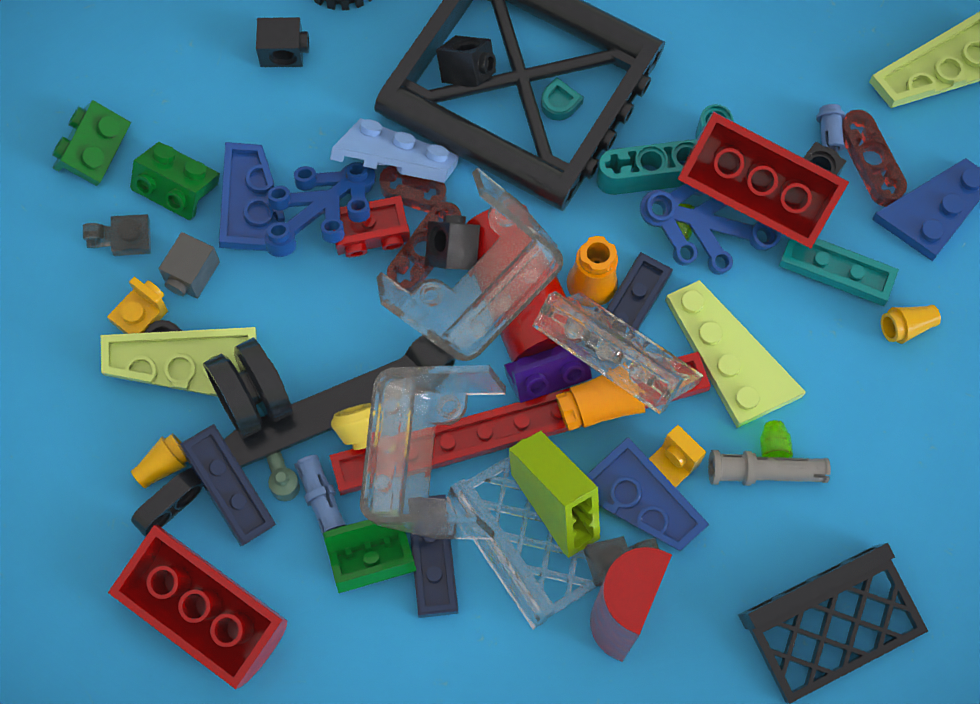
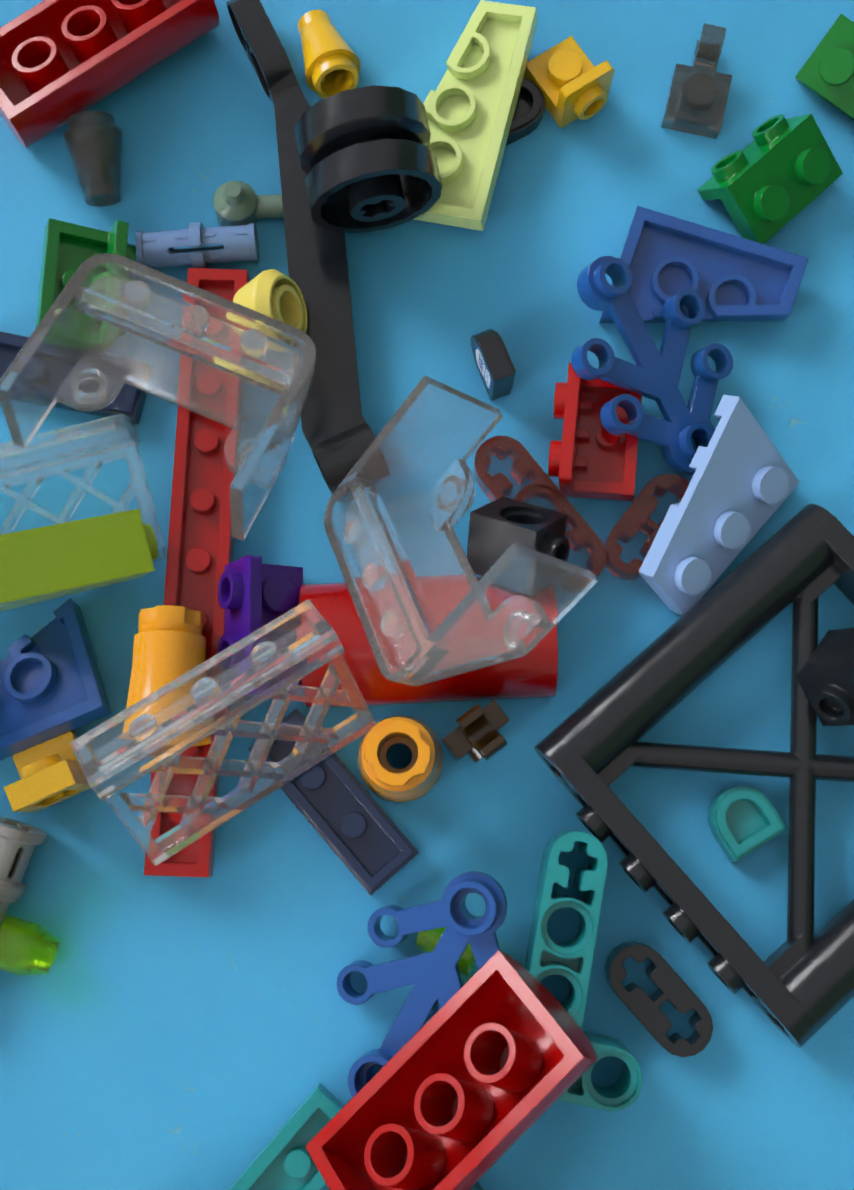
camera: 110 degrees right, 10 degrees up
(188, 266) = (614, 159): dark grey brick -> none
(227, 485) = (246, 120): dark blue tile -> none
(278, 581) = (96, 155): none -> clear smoke cone
(343, 295) = (493, 363): none -> black tile
(566, 234) = (478, 733): none -> dark brown plate
(660, 112) = (669, 988): none -> black beam
(734, 361) = (180, 937): yellowish green wing -> none

